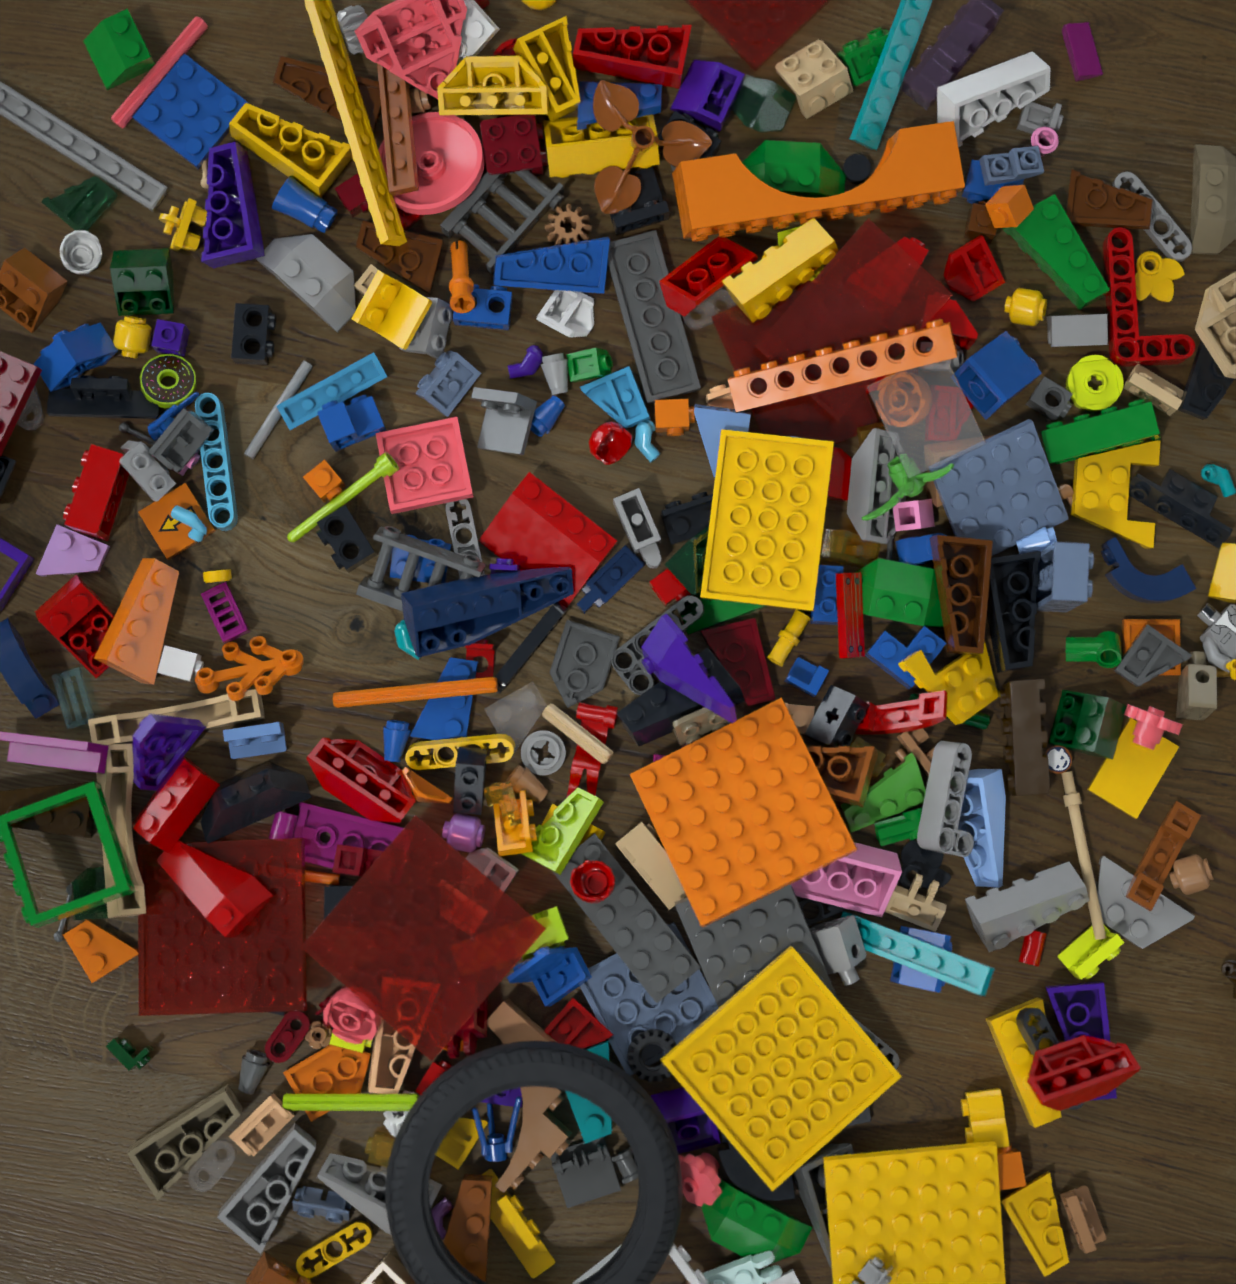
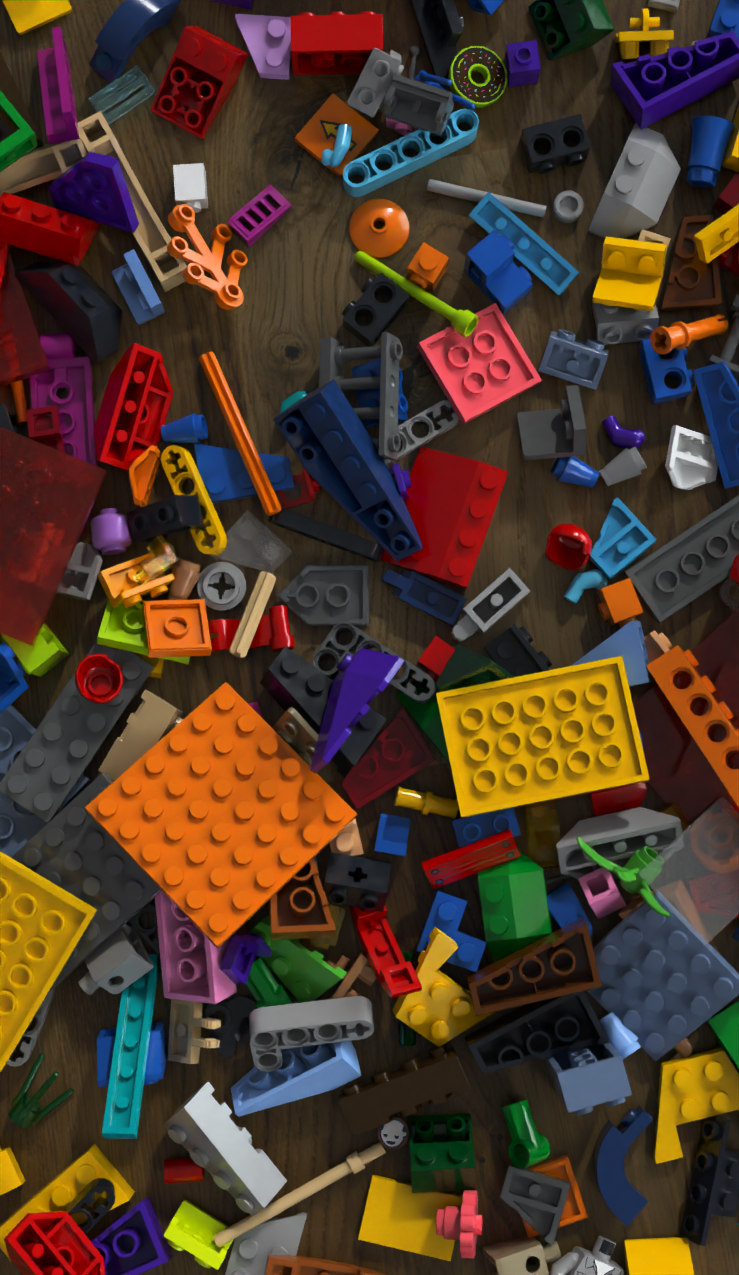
camera: 75 degrees right, 0 degrees up
(132, 336) = (510, 24): yellow head -> none
(140, 624) = (218, 131): orange wedge -> none
(217, 576) = (293, 193): yellow tile -> none
(284, 519) = (379, 242): none -> orange dish
(310, 342) = (568, 206): none -> light grey tile
(569, 801) = (176, 628): none -> orange tile
(589, 364) = (644, 498): green bracket -> none
(867, 838) = (241, 954): none -> dark purple bracket
(938, 1066) = (27, 1109): none -> dark green plant

